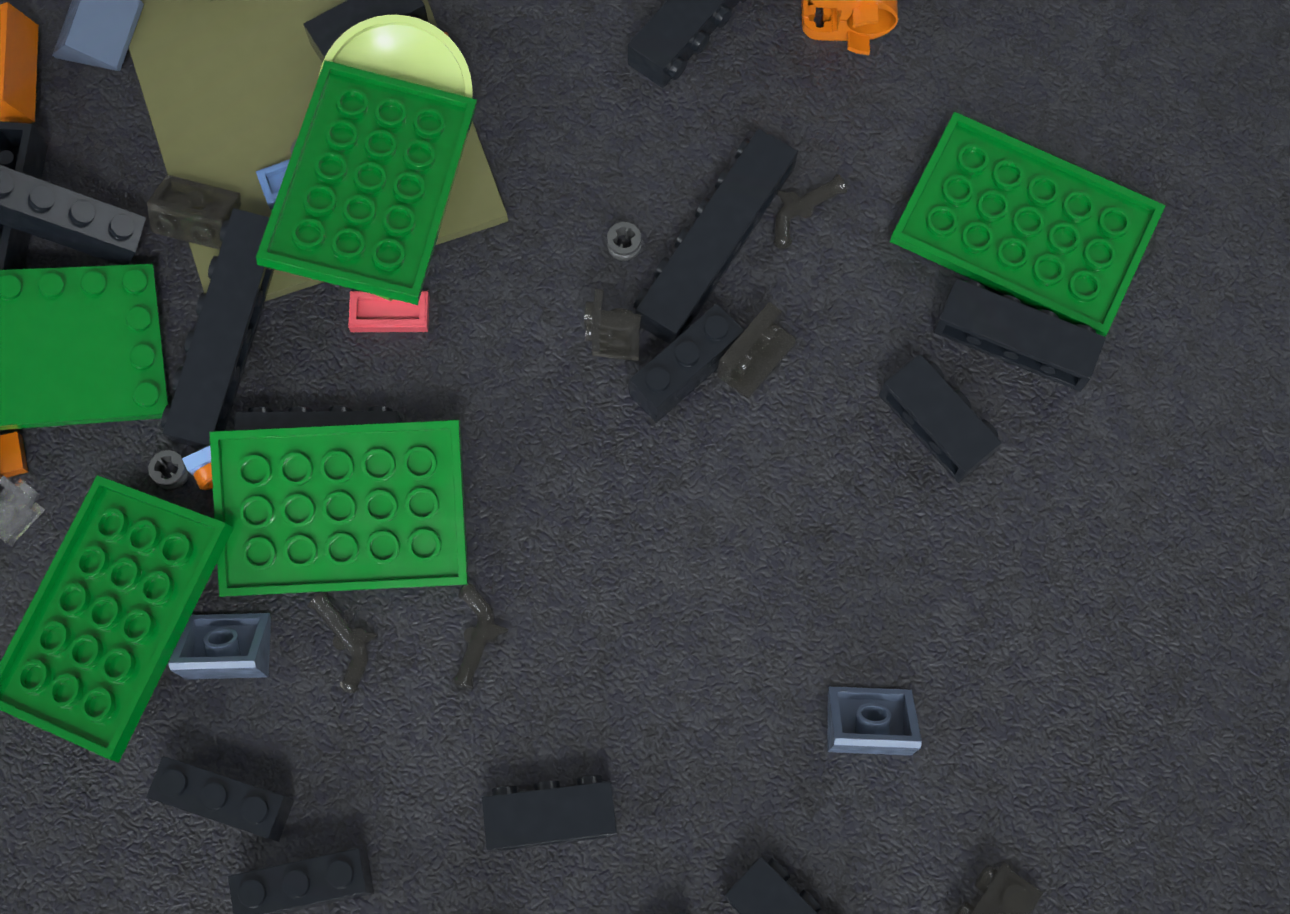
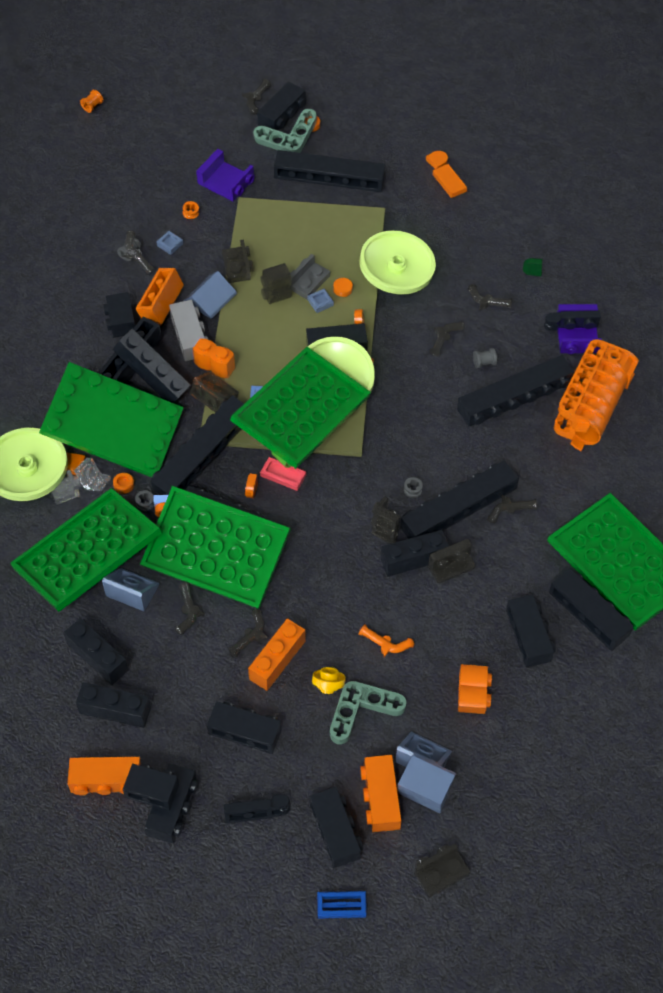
camera: 25 degrees right, 15 degrees down
(48, 467) = (91, 476): none -> clear bracket
(91, 109) = (187, 326): none -> light grey brick
(113, 452) = (123, 483): none -> orange tile
(163, 147) = (214, 358): none -> orange brick
(346, 361) = (251, 485): none -> orange tile
(542, 656) = (277, 654): none -> orange brick
(651, 662) = (328, 680): none -> yellow plate
(710, 545) = (385, 642): none -> orange piece
(723, 669) = (360, 699): none -> sand green beam
(836, 826) = (381, 793): none -> orange brick
(897, 565) = (473, 689): none -> orange brick
(908, 776) = (426, 783): none -> sand blue slope

